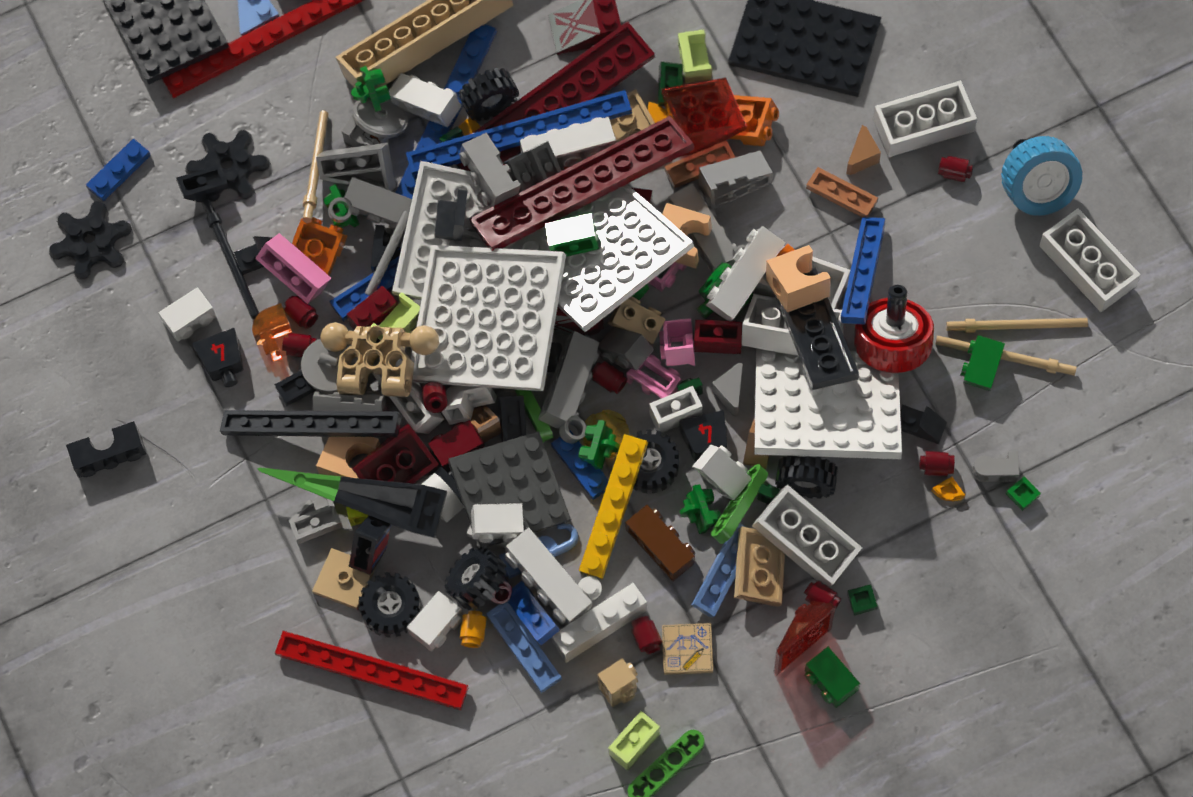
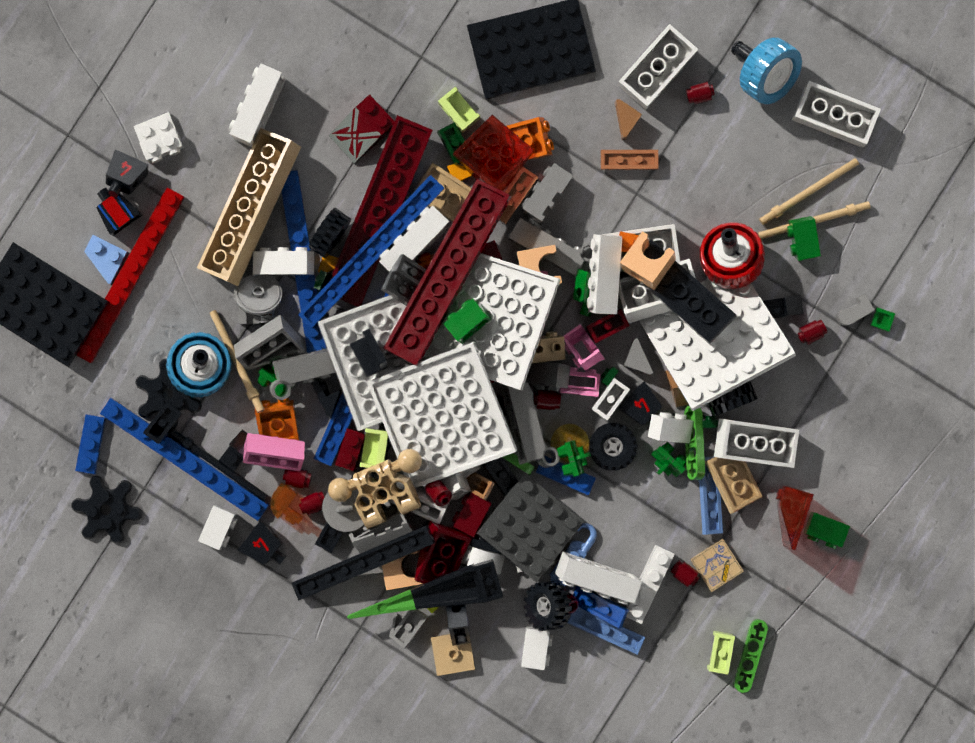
camera: 30 degrees left, 20 degrees up
(125, 447) = (238, 647): black arch -> none
(202, 238) = (186, 461): none -> blue plate
(275, 148) = (198, 364): none -> dark azure wheel
(363, 91) = (243, 279): green hips -> none
(372, 670) = (513, 707): red plate -> none
(384, 594) = (495, 666): black wheel -> none
(388, 253) = (335, 402): light grey bar -> none
(473, 629) = (565, 639): light orange brick -> none
(488, 170) = (374, 302): light grey wedge -> none
(496, 522) = (540, 561): white brick -> none
(591, 587) = (625, 562): white plate -> none
(613, 506) = (609, 496): yellow plate -> none
(618, 682) = (688, 621): tan brick -> none
(660, 542) = (655, 501): reddish brown brick -> none
(821, 593) = (788, 476): dark red brick -> none
(862, 599) = (815, 462): dark green plate -> none
(863, 271) = (683, 218): blue plate -> none
(948, 490) = (829, 345): light orange tile -> none

